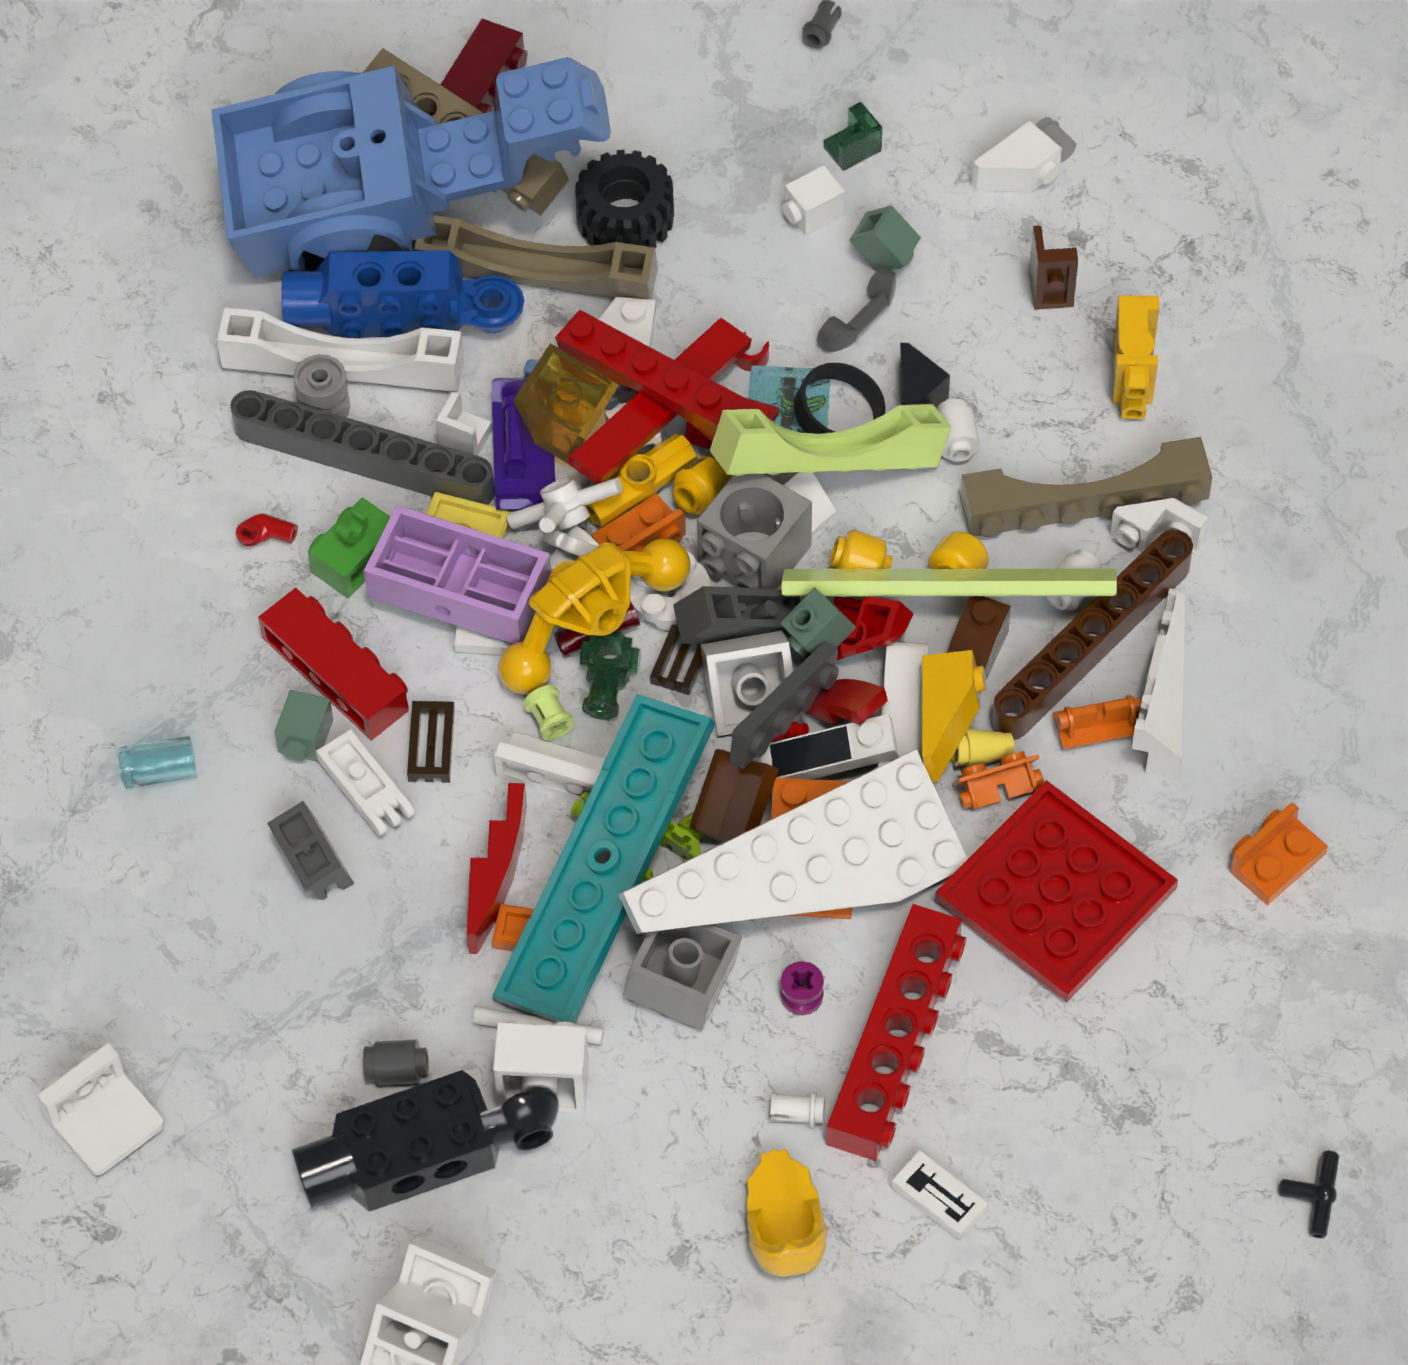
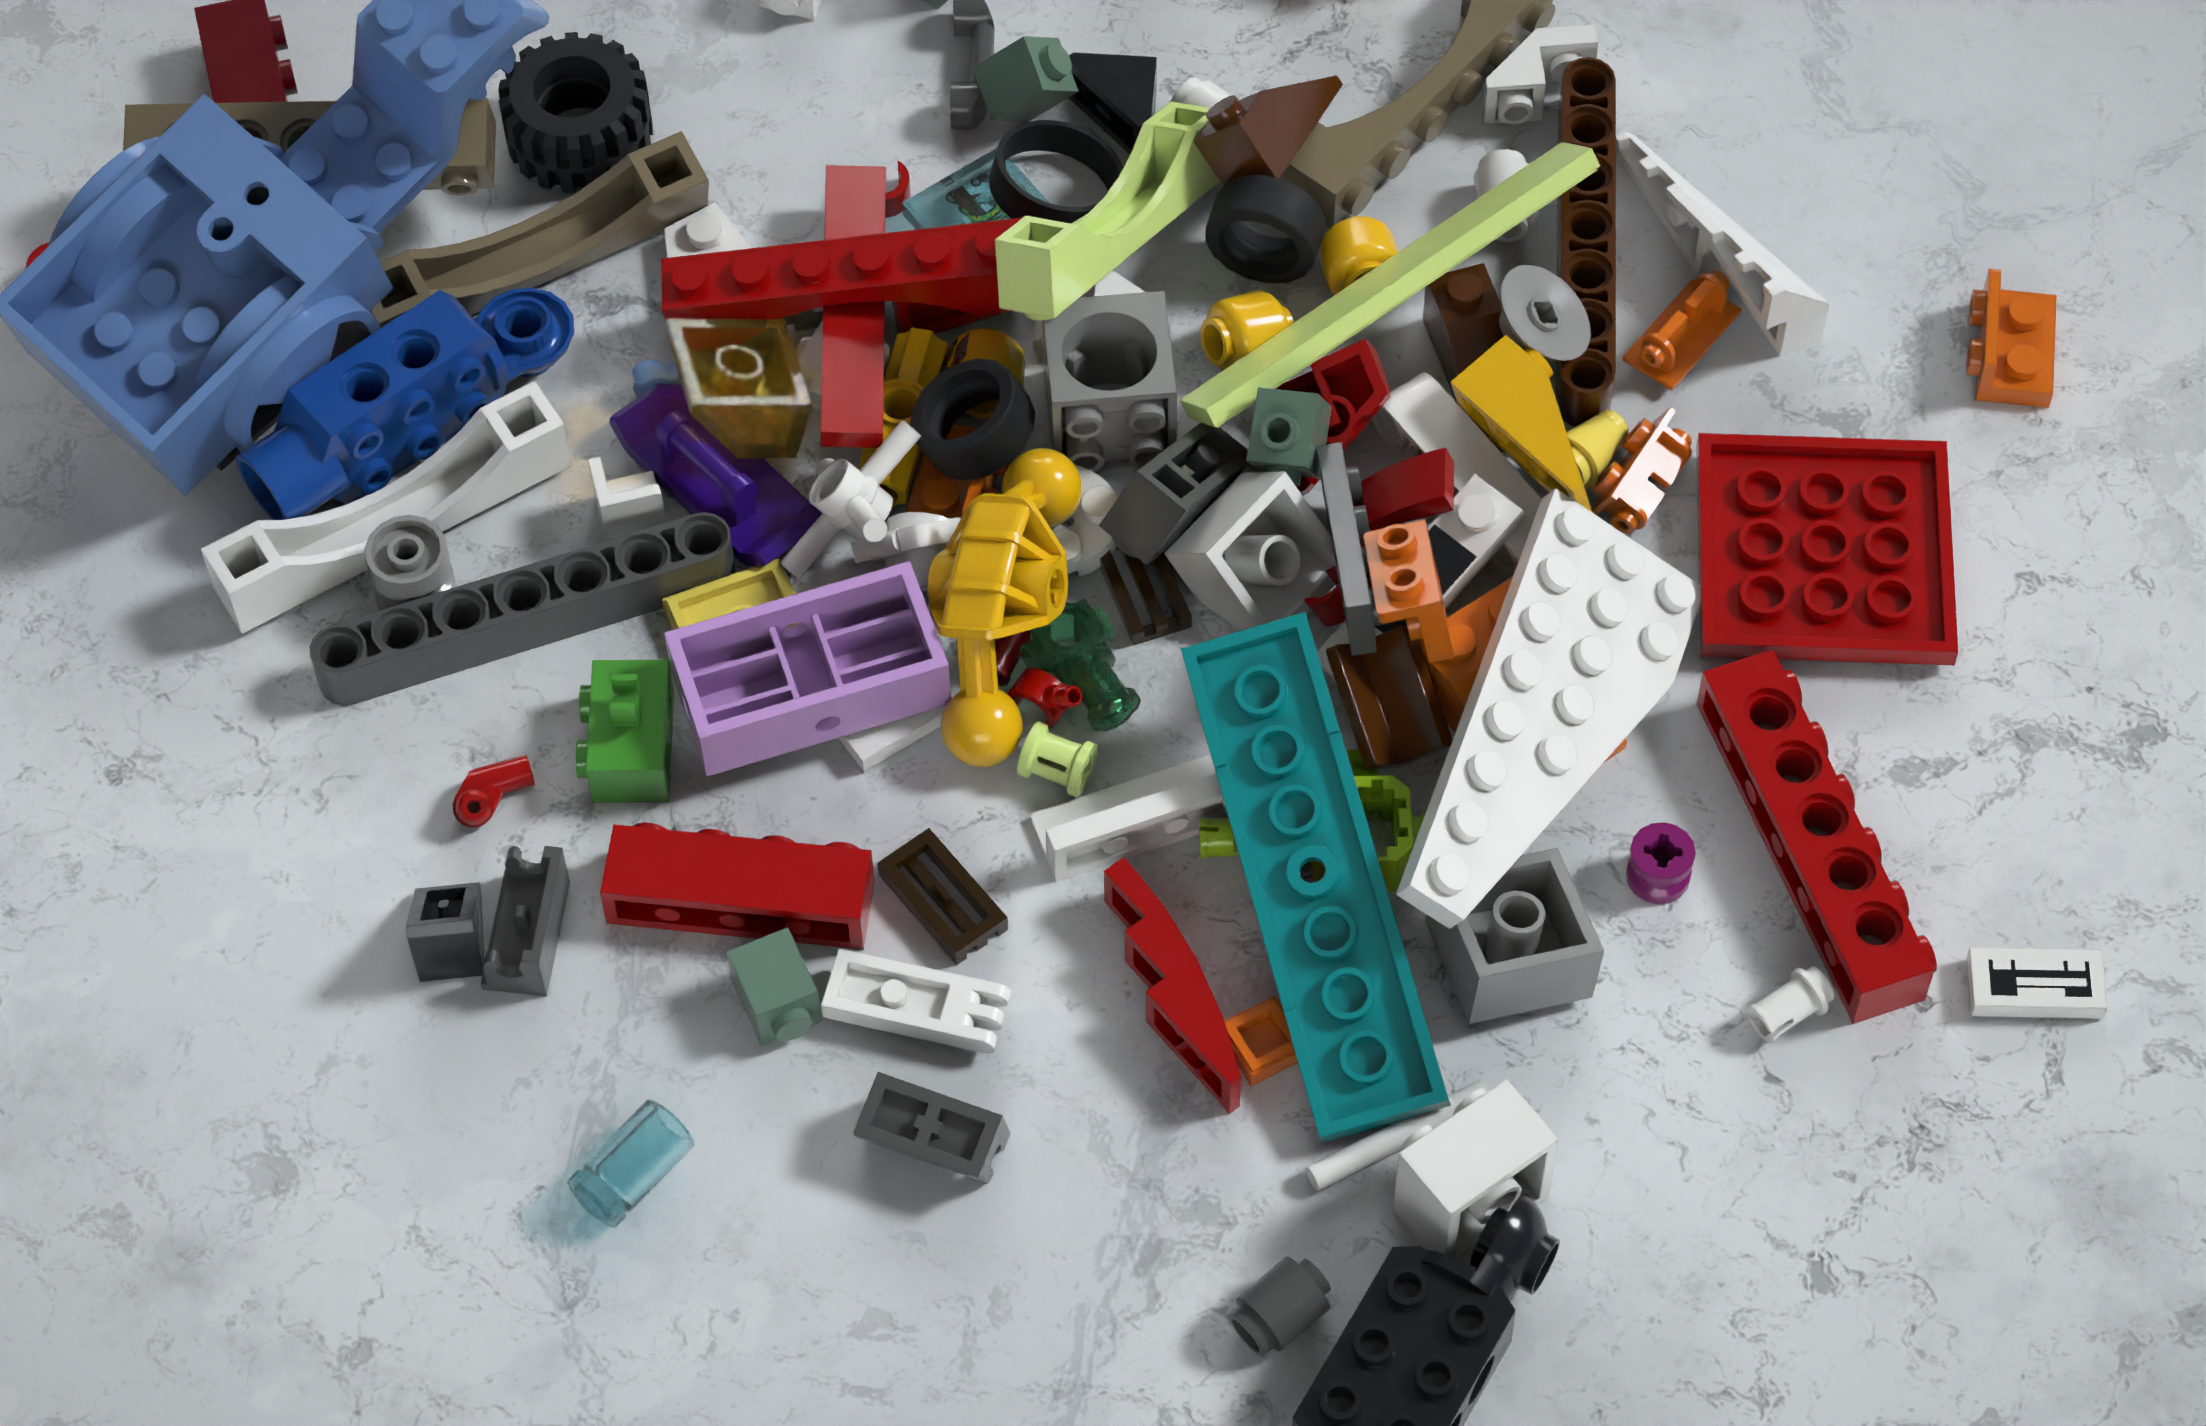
camera: 40 degrees left, 0 degrees up
(178, 584) = (447, 931): none -> black slope
(220, 611) = (527, 923): none -> dark grey hinge
(572, 674) = (1046, 693): none -> red piece
(663, 519) = (990, 445): none -> black tyre
(784, 1216) = (1907, 1135): yellow hair -> none
(788, 746) = (1409, 585): none -> orange bracket
(870, 340) = (1025, 79): none -> sand green brick
(917, 508) = (1271, 203): none -> black tyre
(955, 452) = (1263, 129): none -> reddish brown slope
(1025, 653) = (1543, 313): none -> light grey piece

